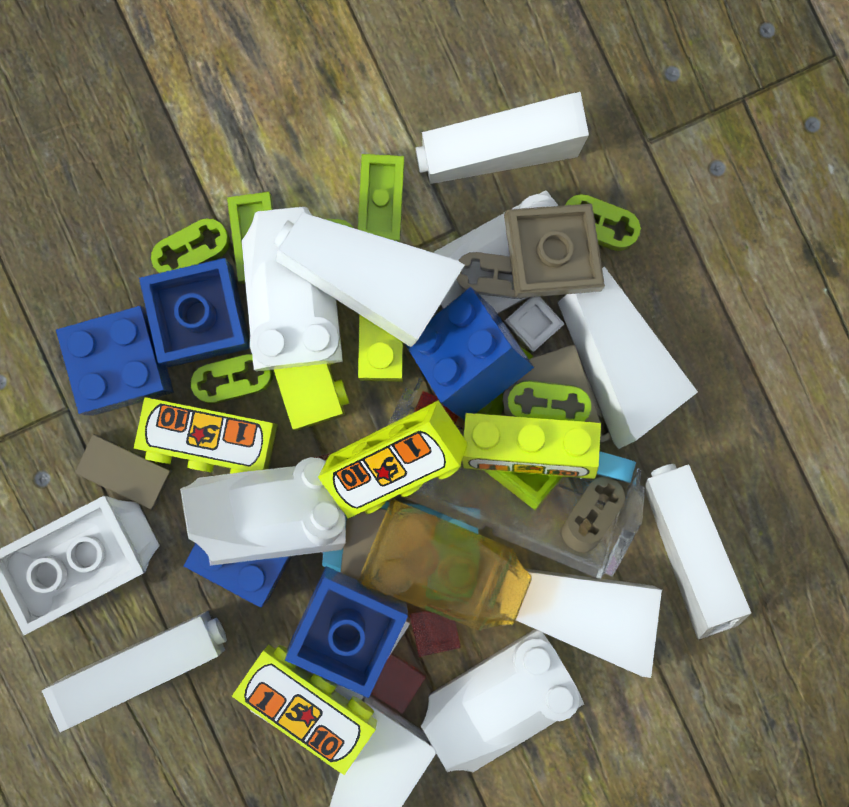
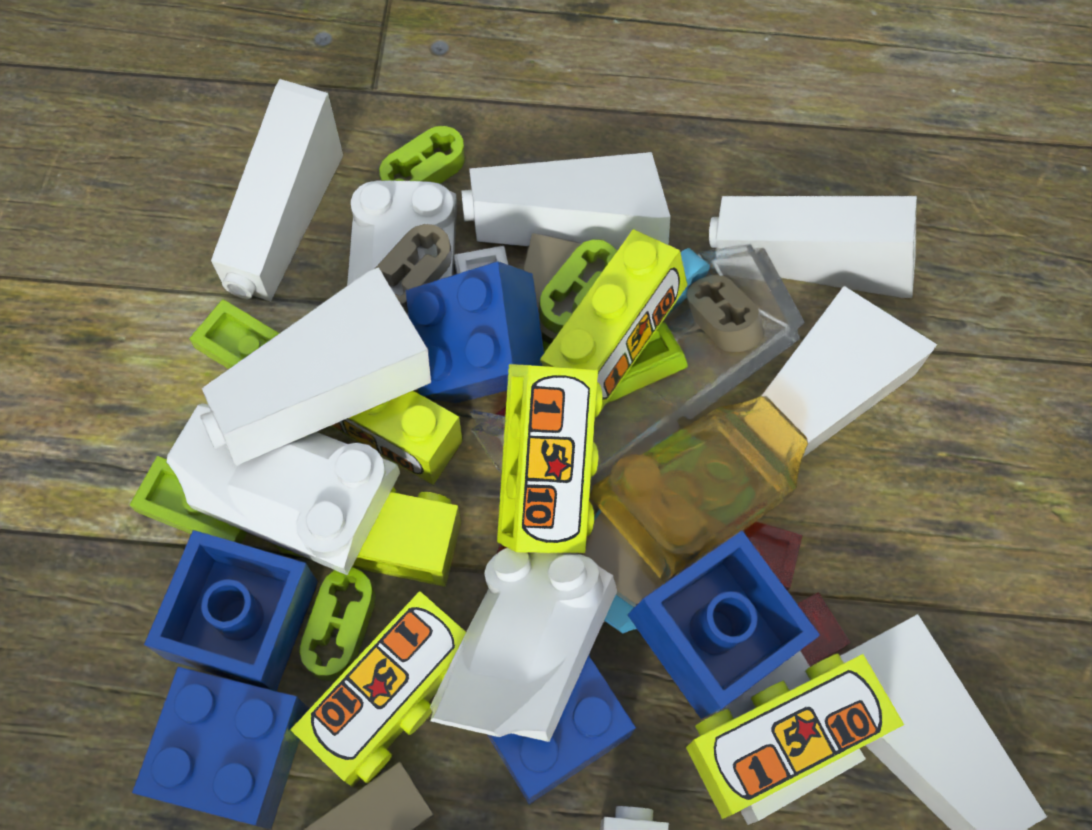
camera: 60 degrees left, 20 degrees down
(187, 239) = (143, 578): lime beam -> none
(499, 703) = (889, 521): white slope -> none
(554, 250) = (421, 197): dark tan tile -> none

